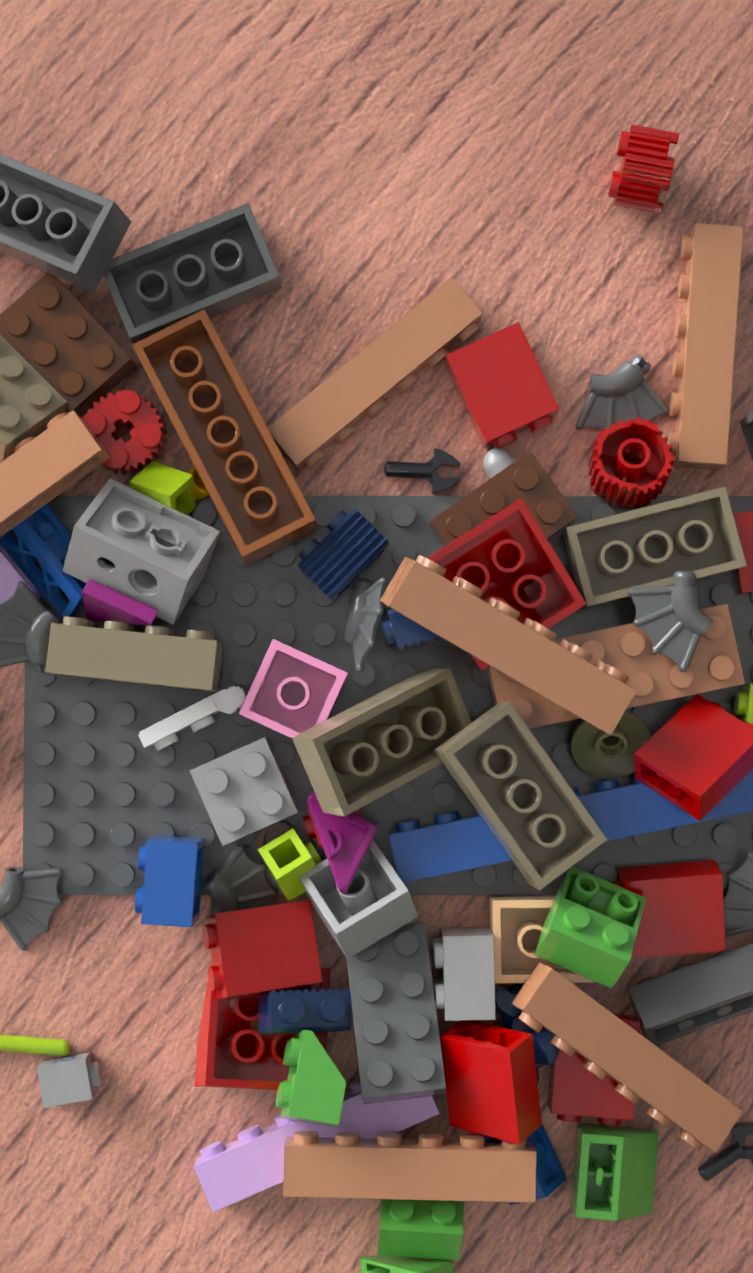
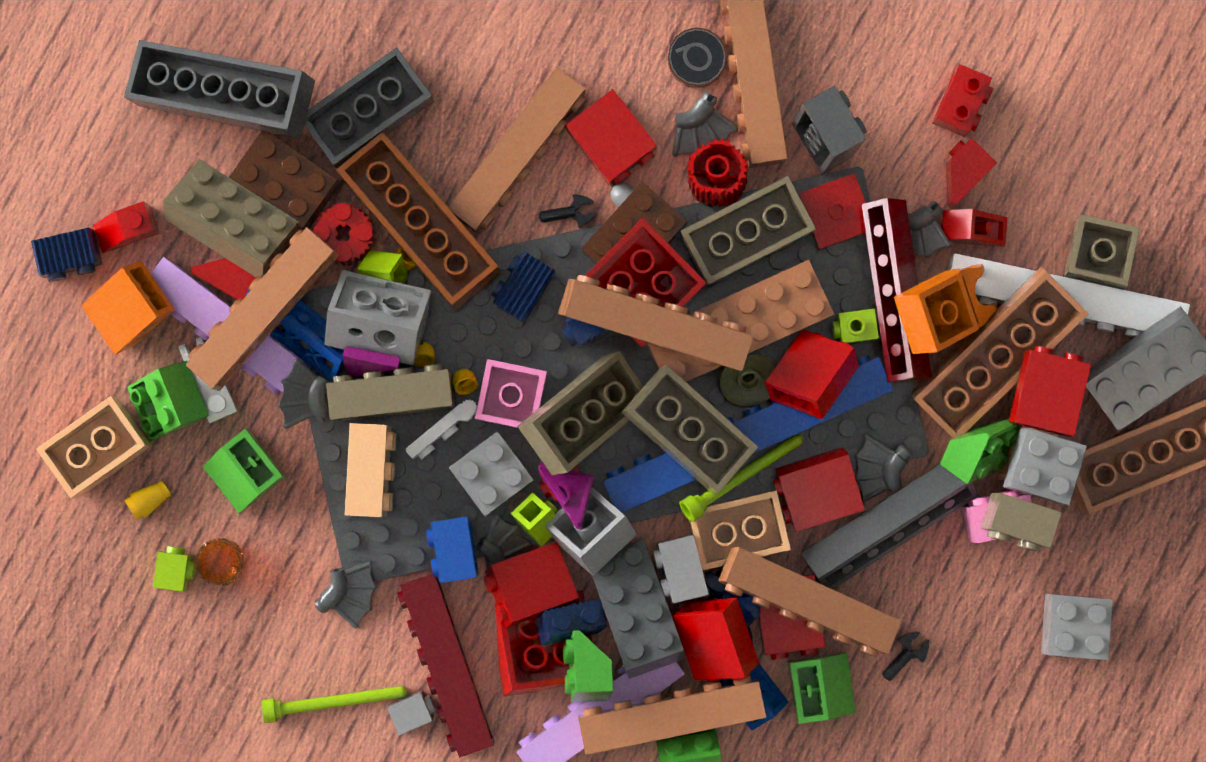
camera: 15 degrees left, 0 degrees up
(84, 751) = (369, 470): none -> light nougat brick
(129, 1029) = (446, 664): none -> dark red brick
(193, 615) = (425, 355): none -> yellow hinge
(237, 661) = (464, 382): none -> yellow hinge
(364, 617) = (549, 329): dark grey arm -> none
(503, 896) = (694, 506): none -> lime piece
(591, 927) = (762, 513): bright green slope -> none
(636, 307) = (697, 57): none -> black tile
(672, 617) = (770, 278): dark grey arm -> none

